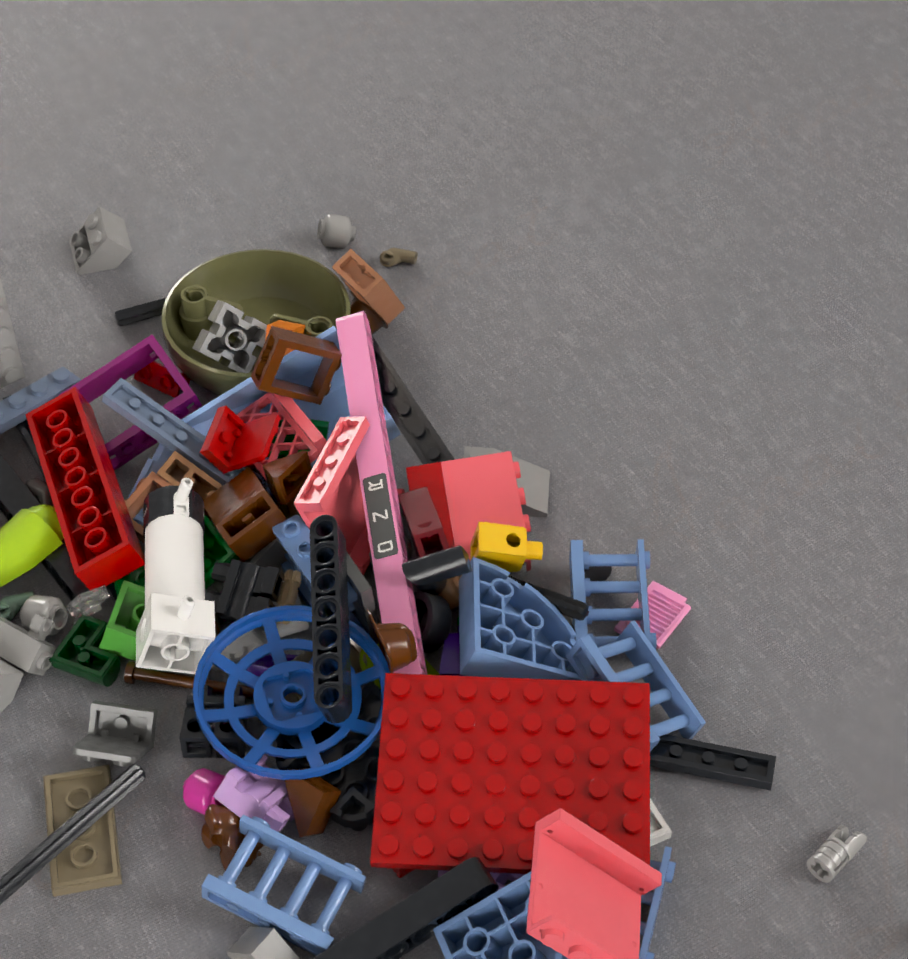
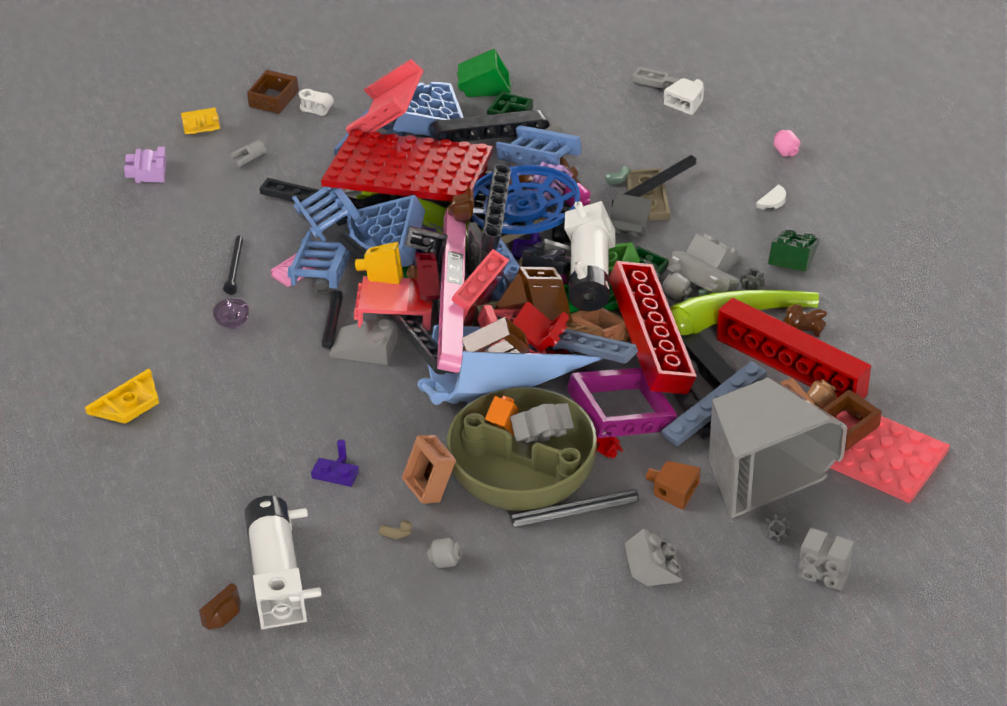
camera: 170 degrees left, 5 degrees down
(68, 328) = (675, 482): none -> dark orange torso
(142, 854) = (617, 178): none -> sand green arm
(489, 318) = (336, 471): none -> dark purple plate
(505, 168) = (274, 562): none -> white piece
(562, 519) = (332, 319): none -> black axle
(564, 160) = (221, 608): none -> reddish brown slope
(715, 497) = (231, 309): none -> clear purple piece
(737, 561) = (230, 286): none -> black bar
(790, 376) = (126, 400): none -> yellow wing

